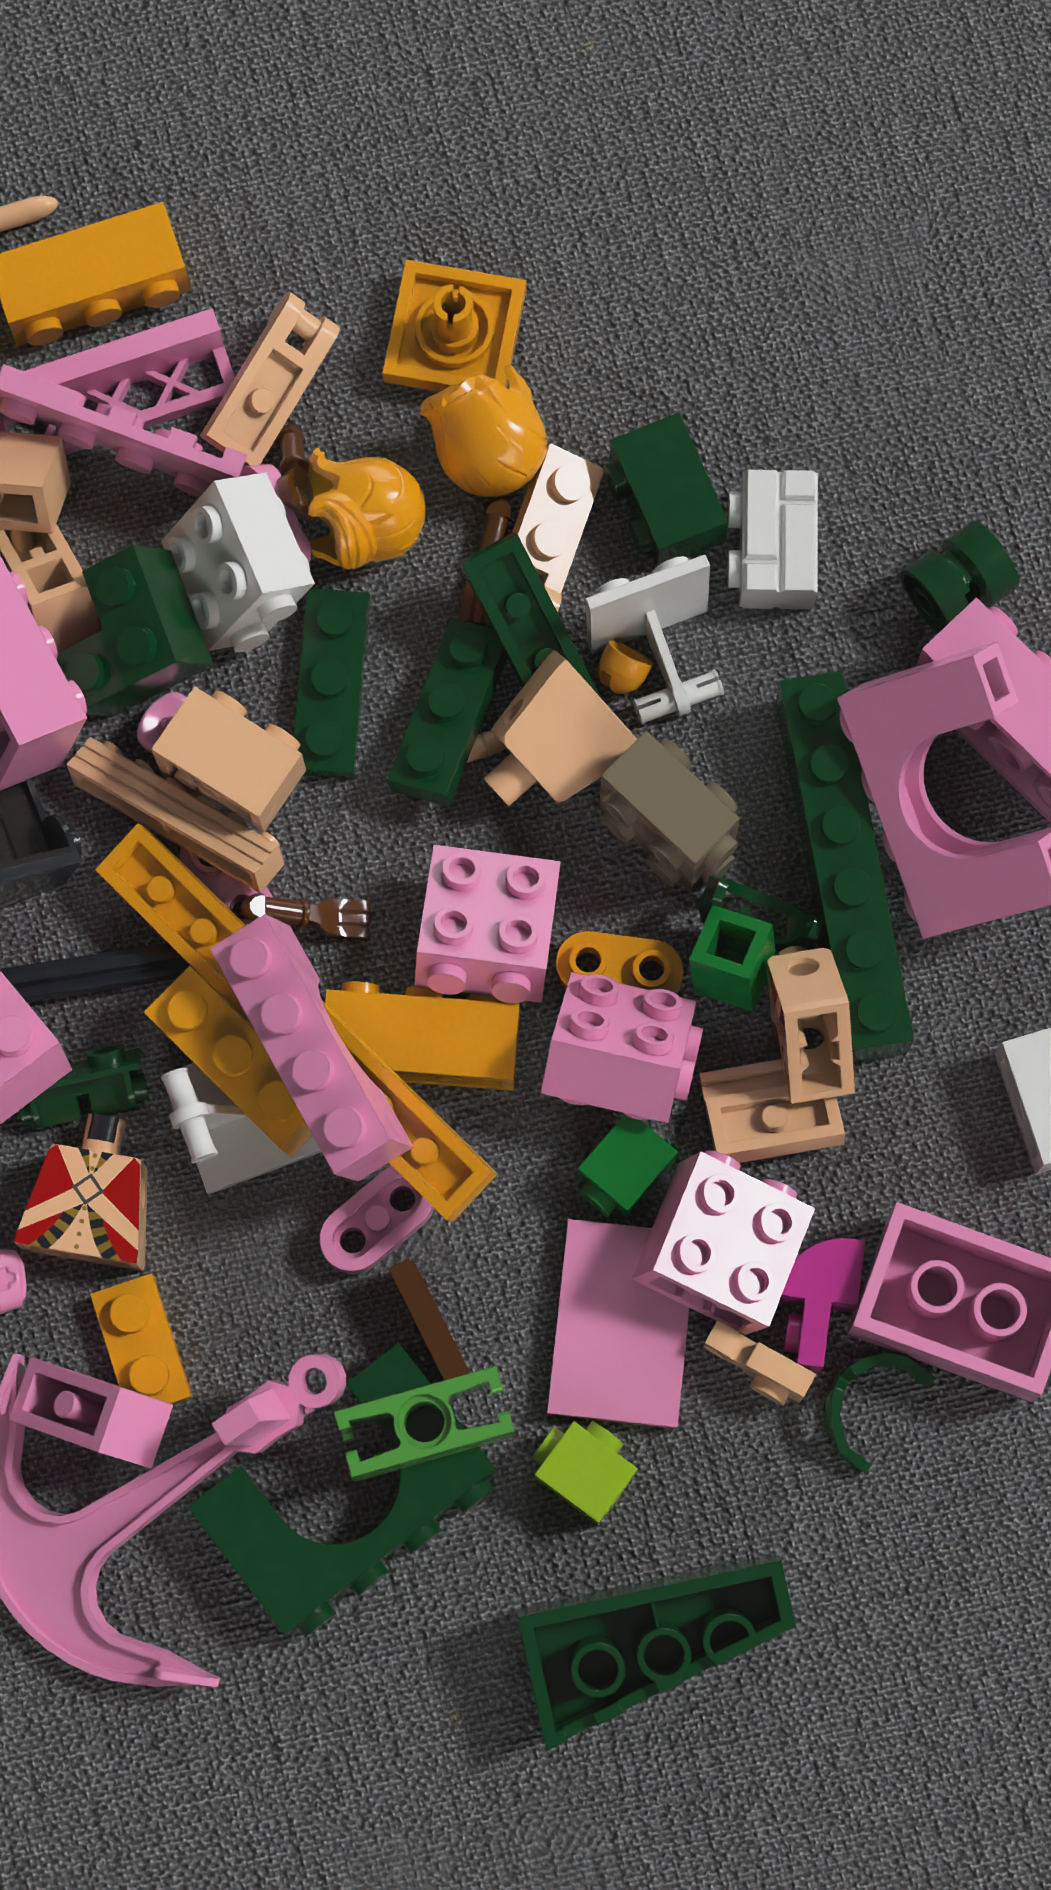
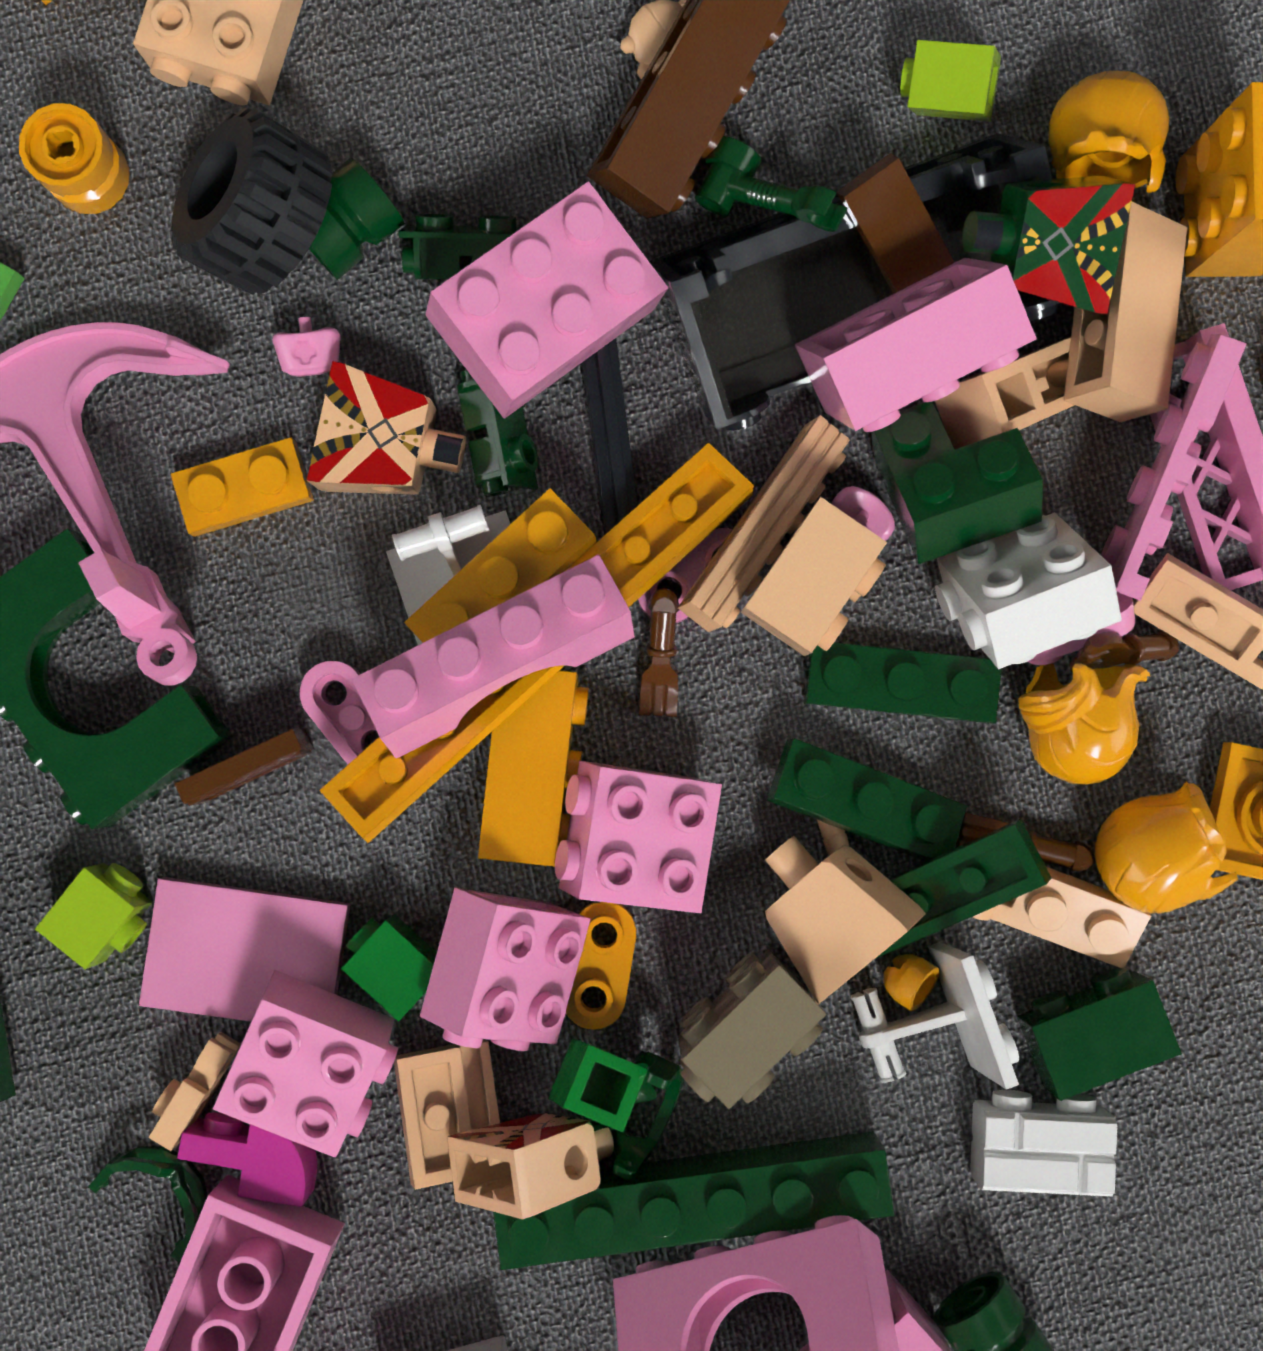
camera: 90 degrees right, 10 degrees up
(91, 1412) = (158, 434): bright pink brick -> none
(403, 1404) = (96, 755): bright green piece -> none

